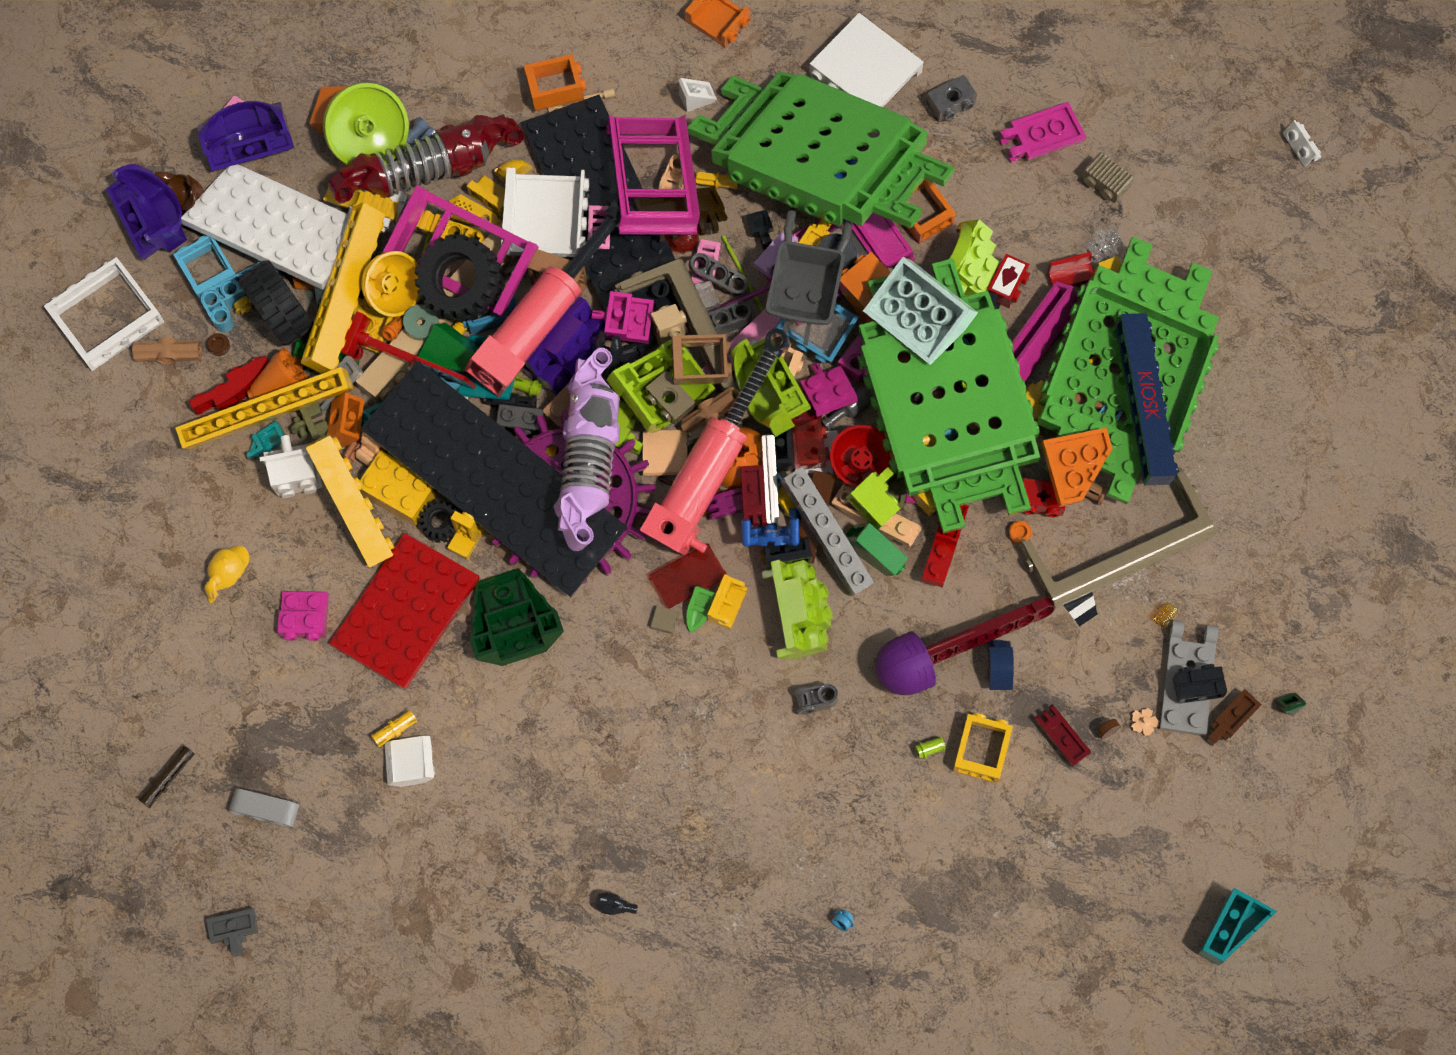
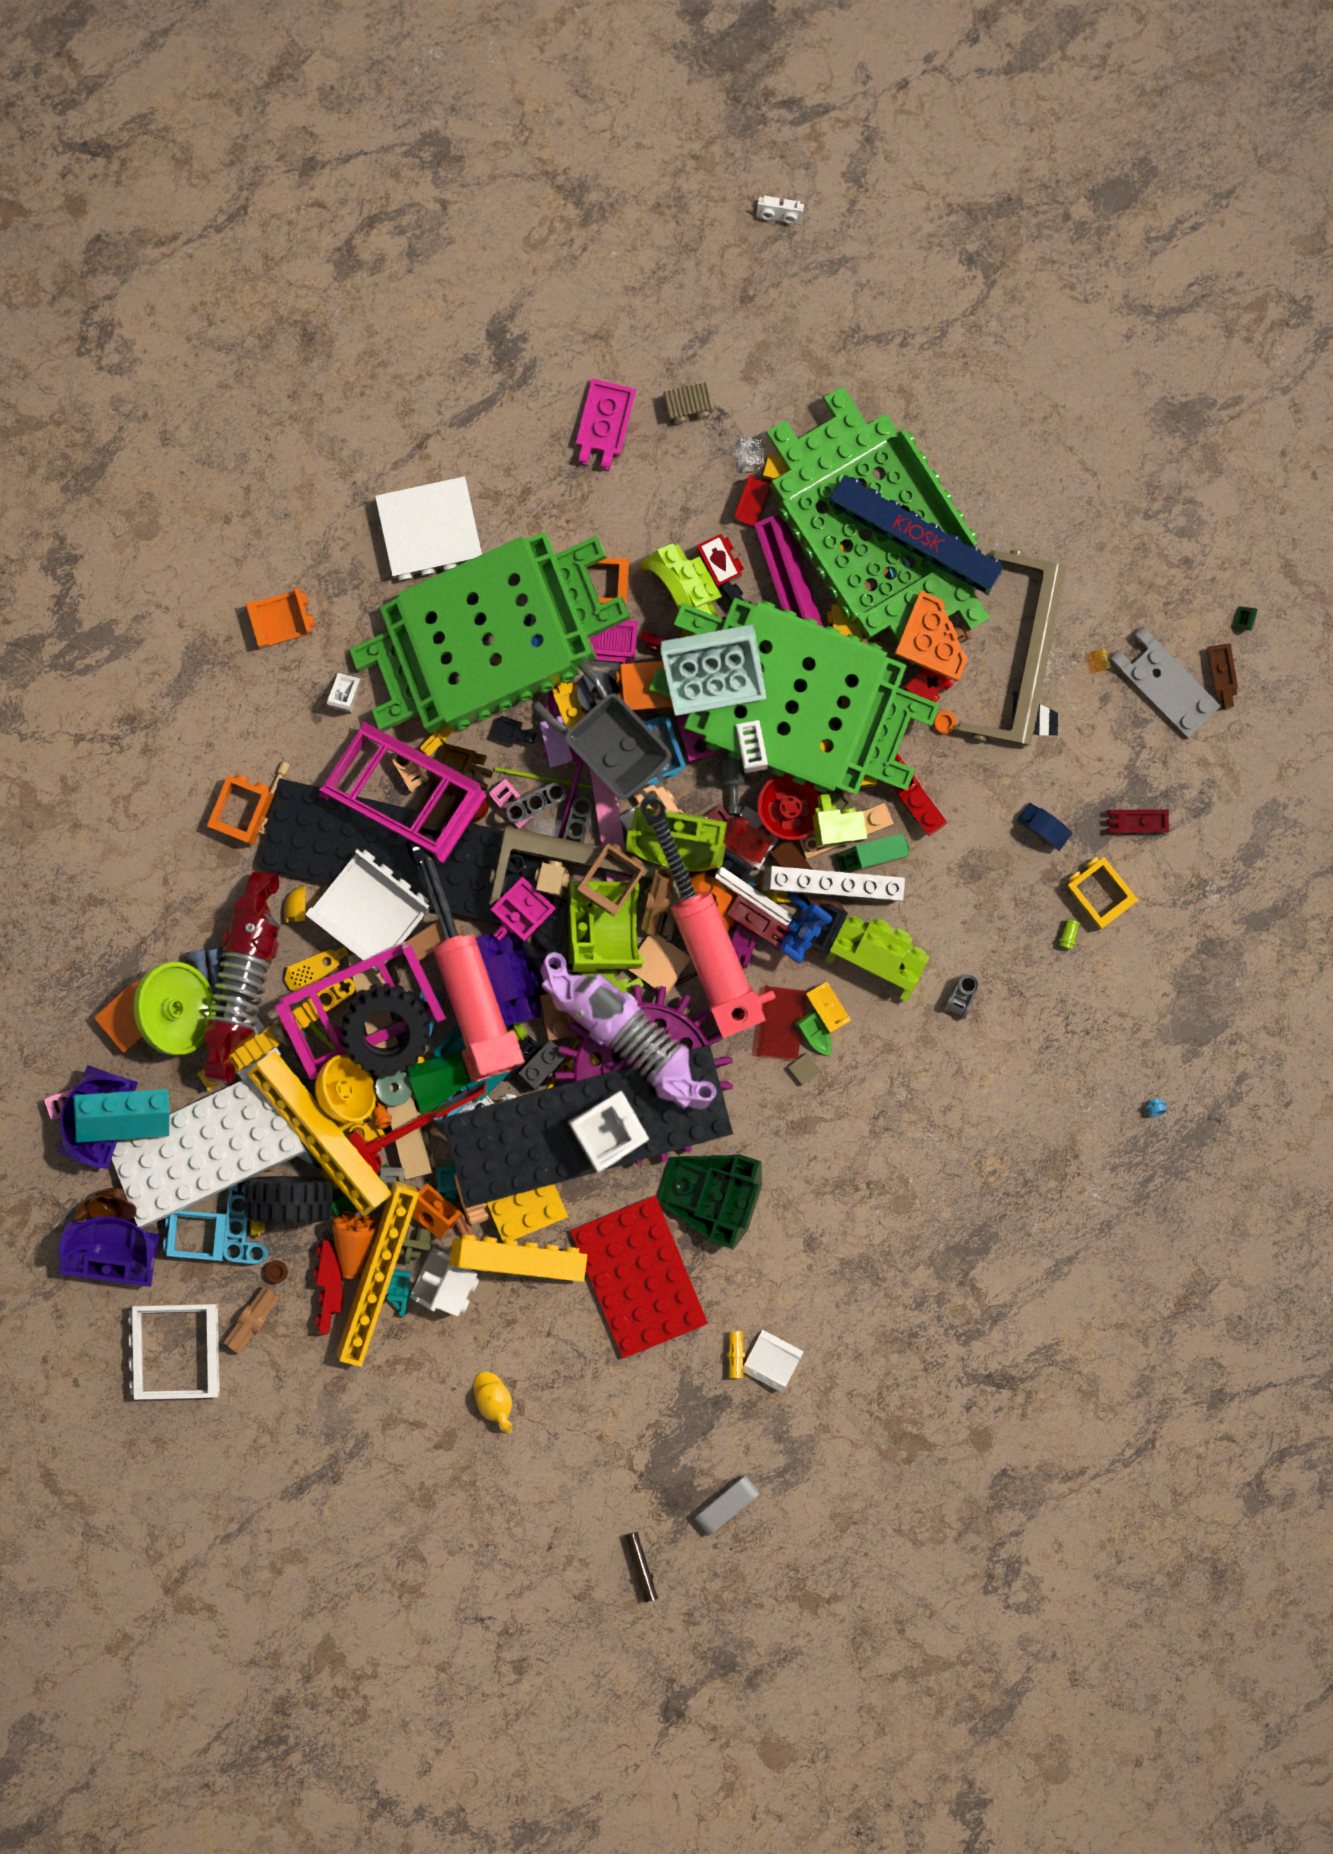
camera: 55 degrees left, 15 degrees up
(233, 929) = (810, 1596): dark grey hinge -> none
(257, 144) = (121, 1115): none -> teal slope
(303, 615) = (581, 1363): dark pink plate -> none
(426, 521) = (581, 1208): black tyre -> none
(466, 536) = (612, 1184): yellow bracket -> none
(488, 194) = (307, 940): yellow panel -> none
(496, 482) = (608, 1131): none -> white piece
(597, 210) = (404, 874): bright pink slope -> none
(613, 904) = (1011, 1280): black piece -> none
(664, 386) = (604, 927): dark tan brick -> none
(828, 390) = (707, 788): dark pink plate -> none
(873, 392) = (758, 765): none -> white slope
(907, 665) = (993, 905): piece -> none
(957, 89) = (512, 463): flat silver brick -> none
(1108, 728) = (1159, 780): reddish brown tile -> none
(1144, 722) = (1173, 746): light nougat plant -> none
(1199, 684) = (1180, 681): black brick -> none

